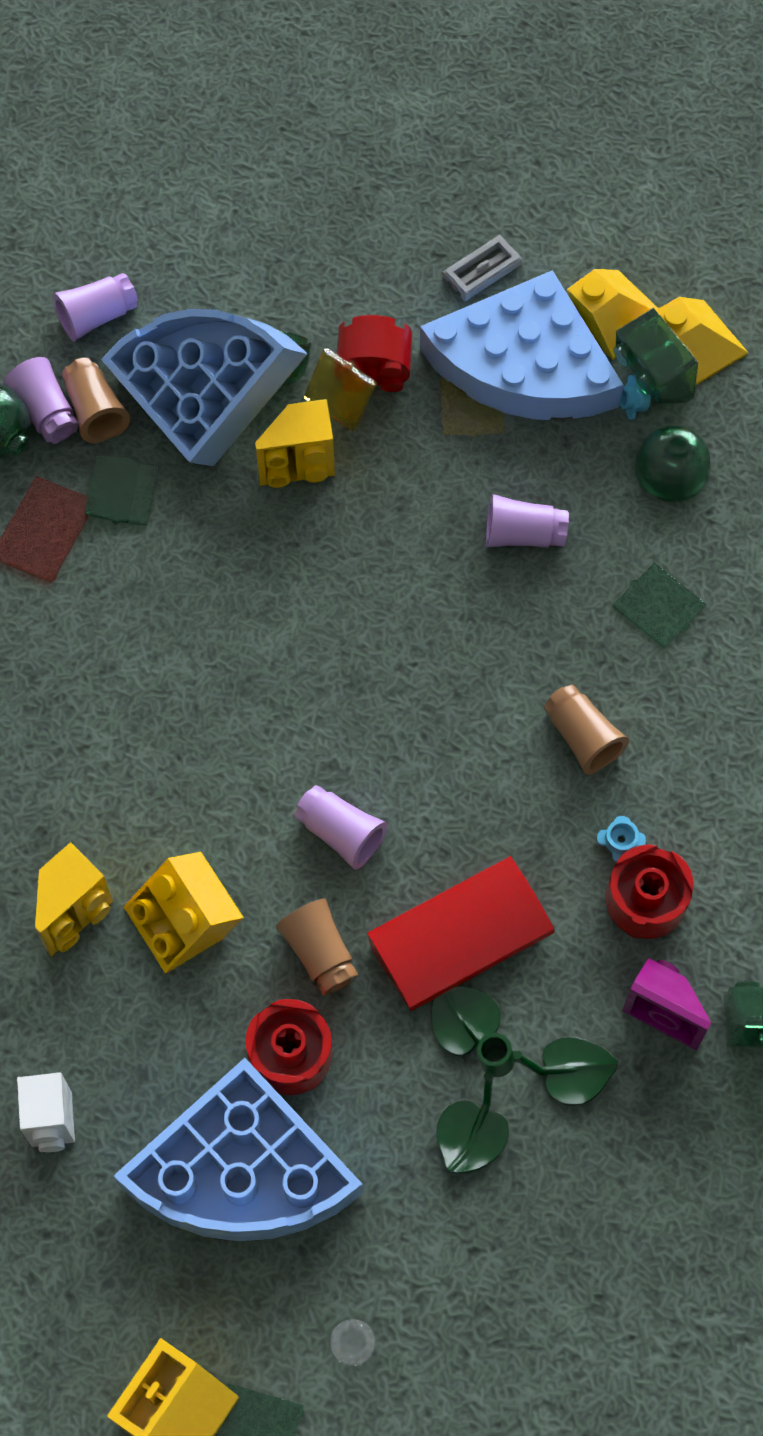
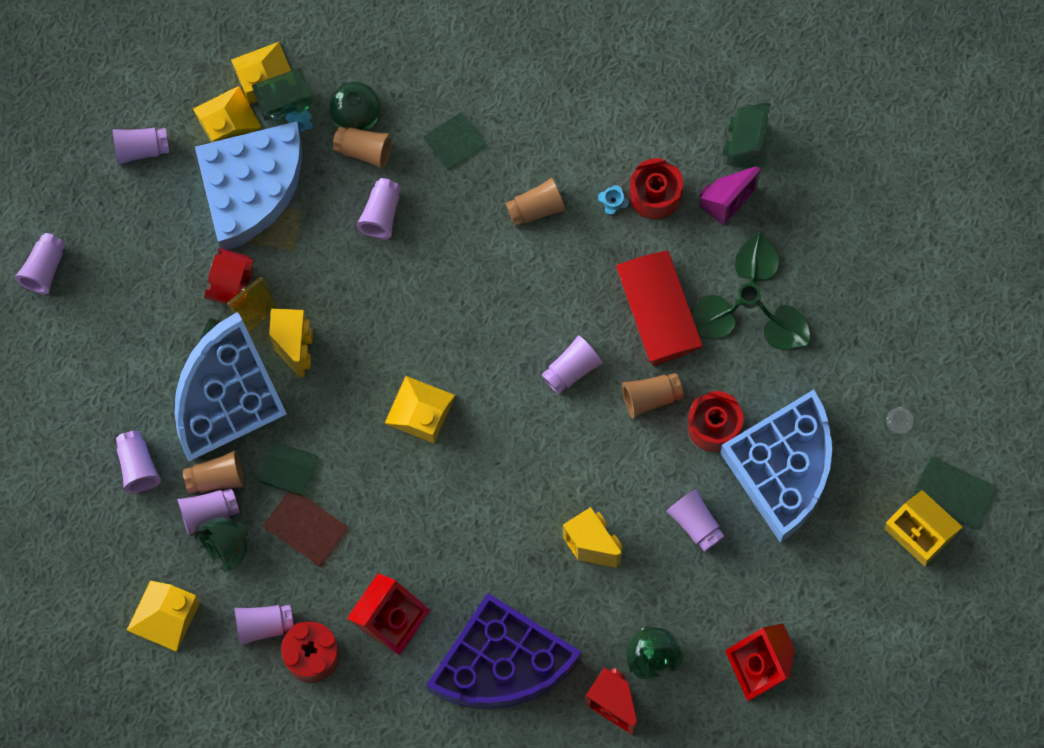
camera: 75 degrees left, 5 degrees up
(46, 1111) = (732, 573): white brick -> none
(129, 1049) = (696, 520): none -> lavender plant
(182, 910) = (610, 474): yellow slope -> none
(237, 639) = (420, 409): none -> yellow slope
(349, 141) = (41, 264): none -> lavender plant
(489, 278) = (177, 215): light grey tile -> none
(545, 212) = (139, 144): none -> lavender plant
(616, 485) = (364, 145): none -> medium nougat plant

